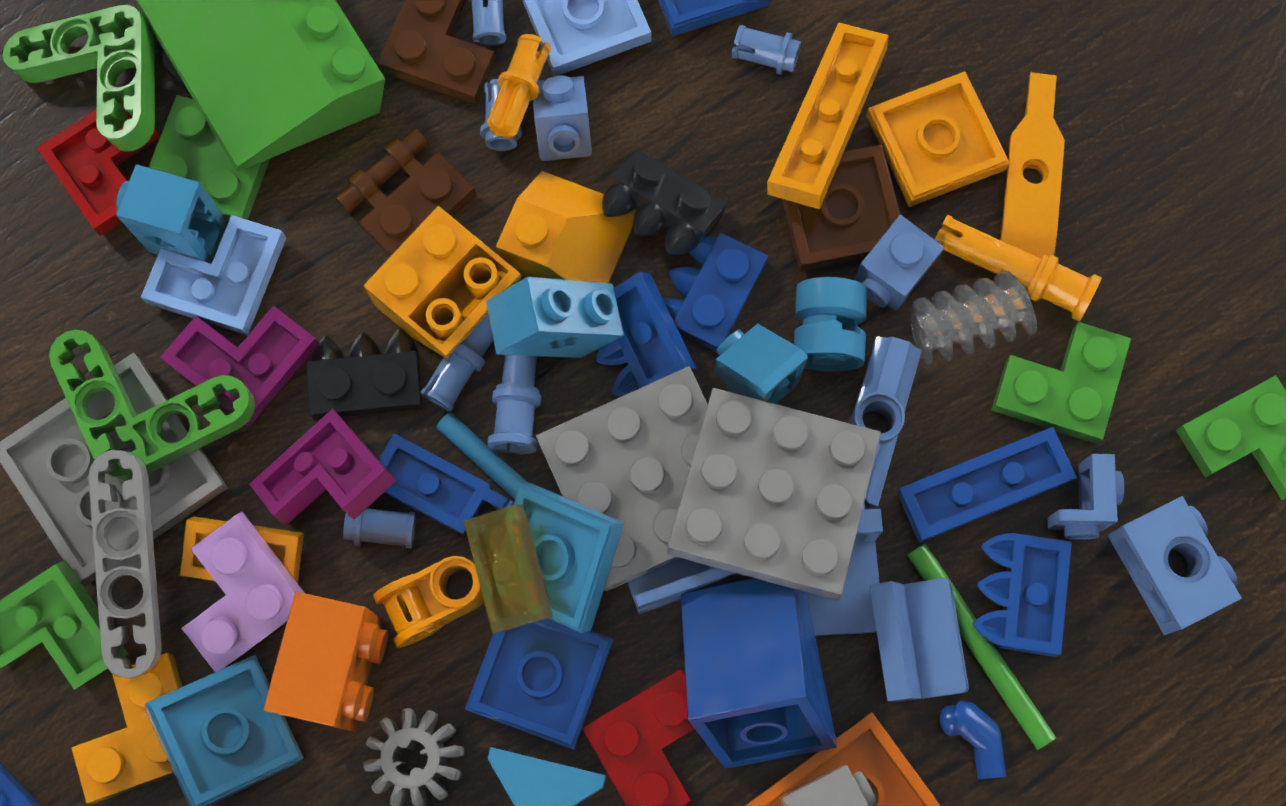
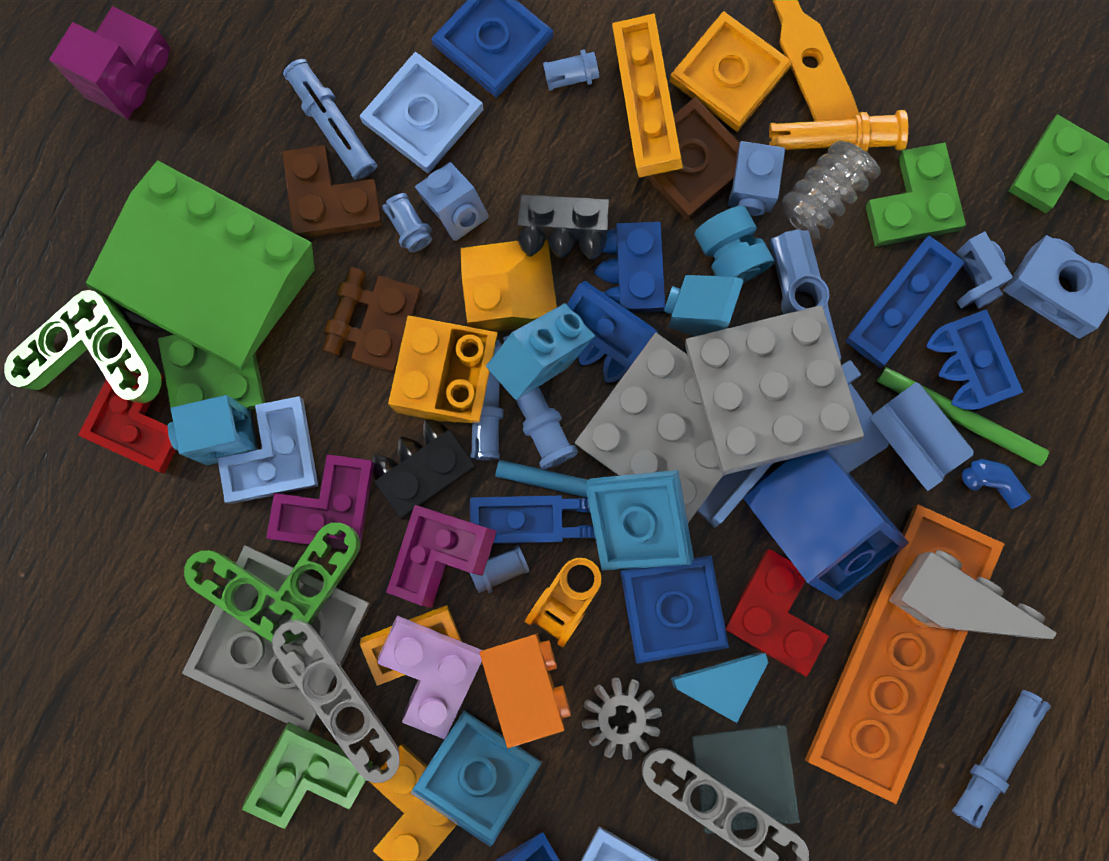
camera: 25 degrees left, 5 degrees up
(508, 568) = (613, 549): clear yellow plate -> none
(518, 86) = (411, 194): light orange axle -> none

